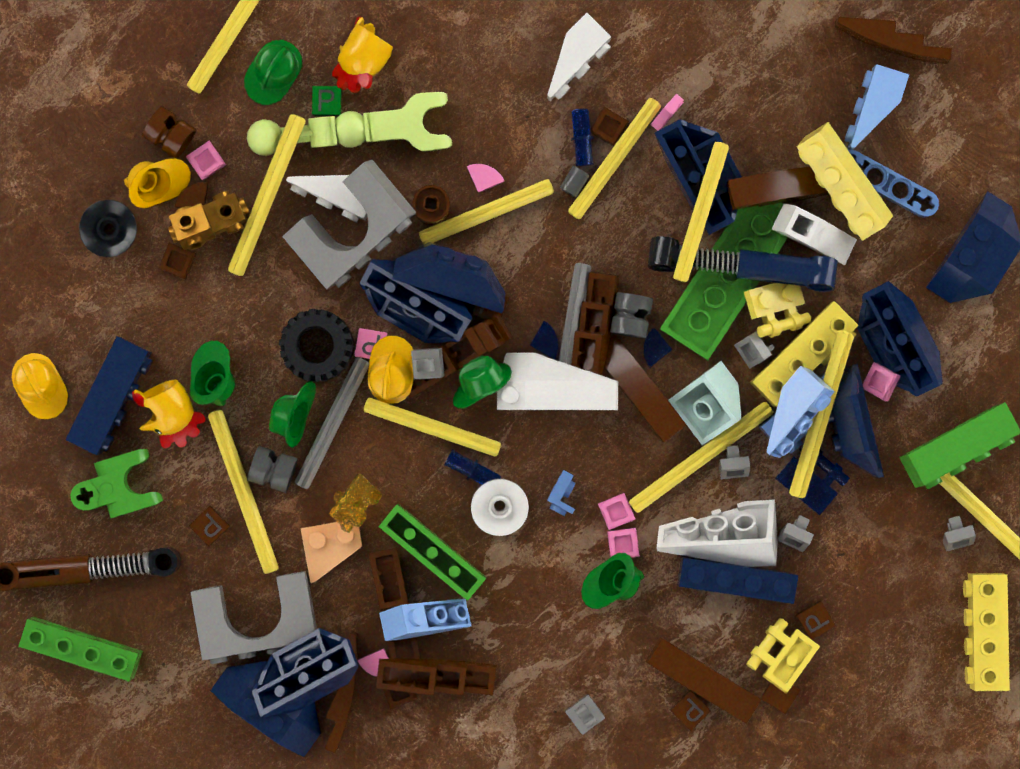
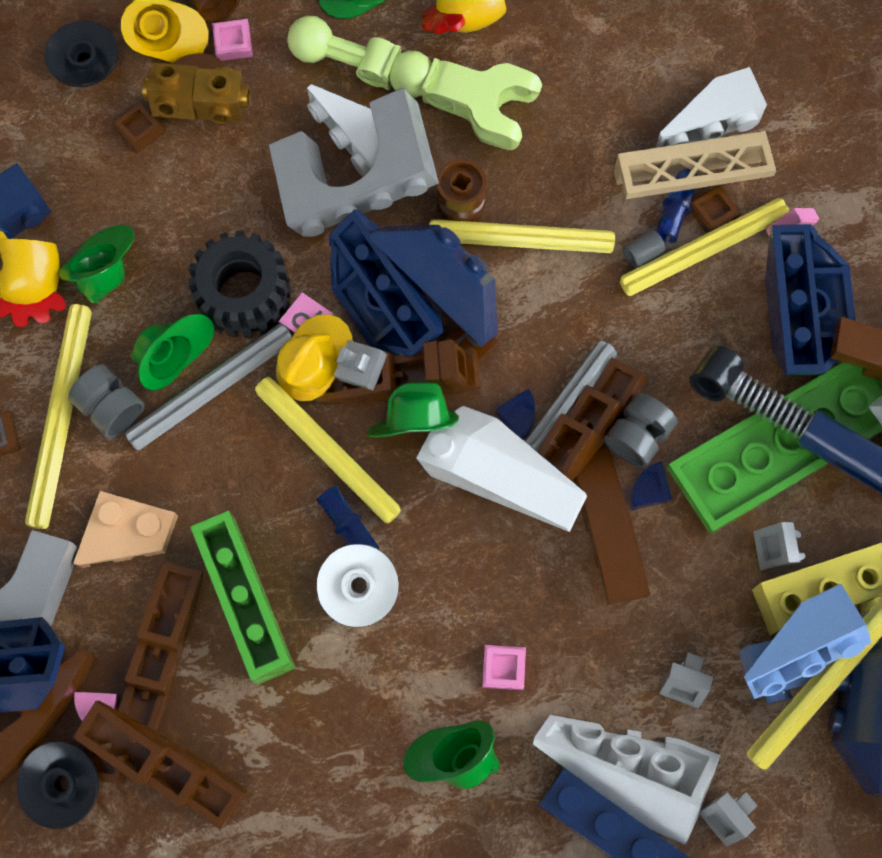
camera: 25 degrees right, 15 degrees down
(266, 194) = (276, 95): light yellow axle -> none
(326, 100) = (403, 33): green tile -> none
(353, 502) = (179, 488): clear yellow hips -> none
(376, 731) = (41, 790): none -> black dish
(424, 619) = (184, 677): light blue slope -> none
(484, 176) = (539, 197): bright pink tile -> none
(562, 488) = (448, 600): medium blue bracket -> none
(573, 101) = (700, 158): none -> tan fence
(623, 542) = (496, 710): bright pink tile -> none
(701, 211) = (789, 338): light yellow axle -> none
(701, 457) = (646, 651): light yellow axle -> none
(709, 403) = (690, 585): light aqua slope -> none
(774, 298) = (834, 496): light yellow plate -> none
(819, 491) = (786, 774): clear blue plate -> none

